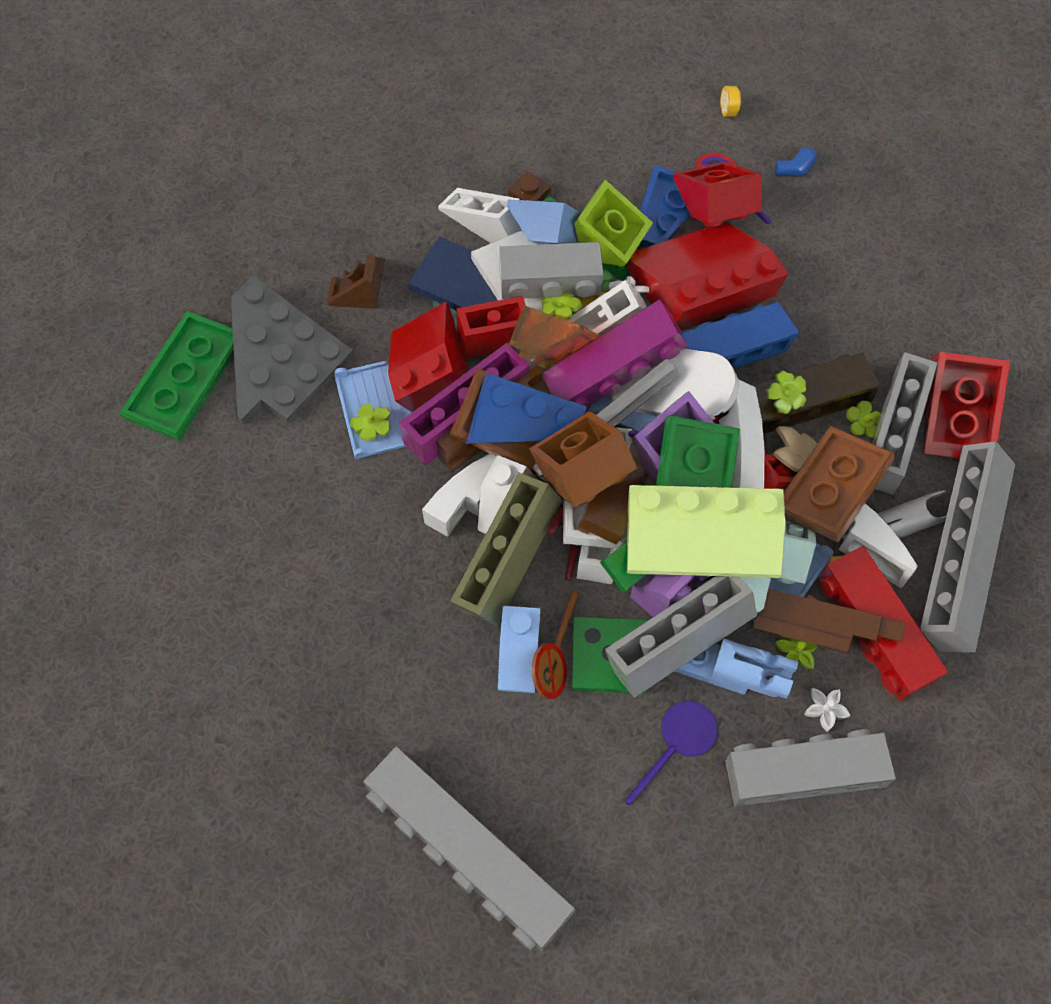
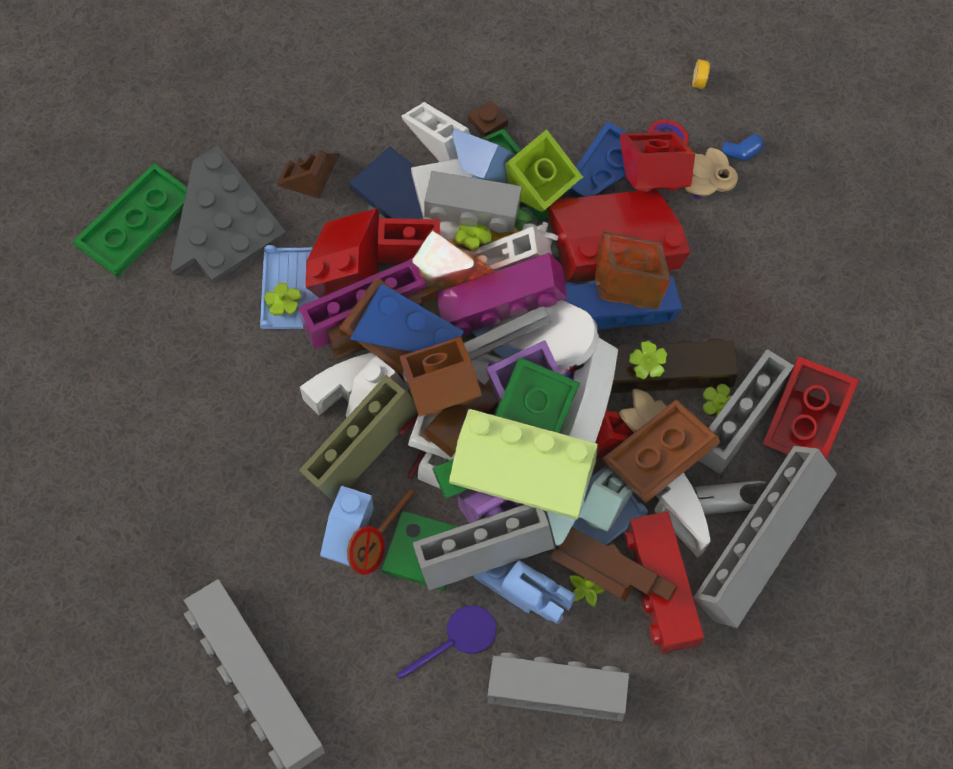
camera: 15 degrees right, 0 degrees up
(743, 303) = (631, 271): none -> clear orange slope
(773, 195) = (707, 172): none -> tan plate
(827, 708) = (594, 642): white plant -> none

